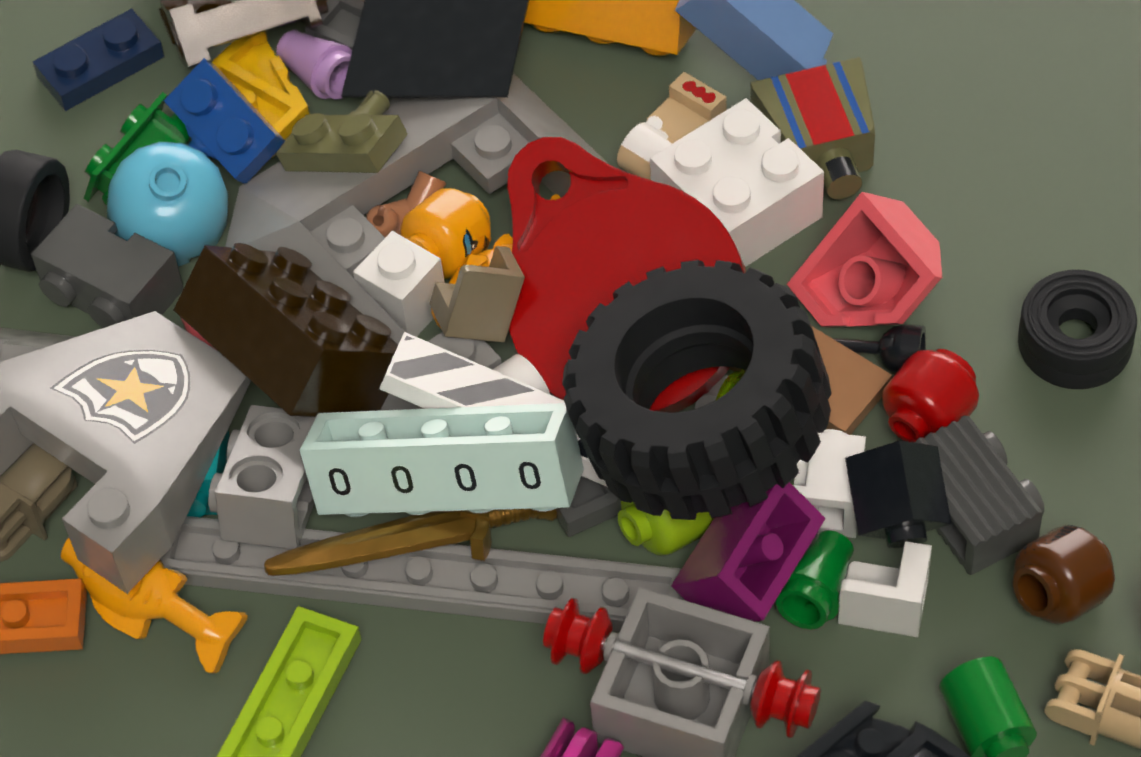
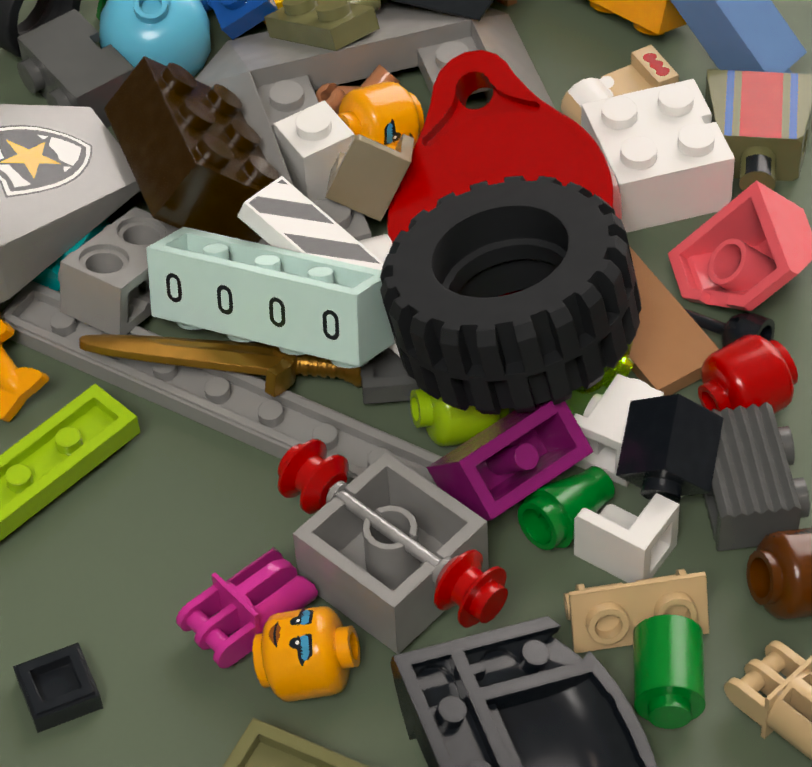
camera: 20 degrees right, 5 degrees down
(912, 673) = (609, 613): none -> tan hinge

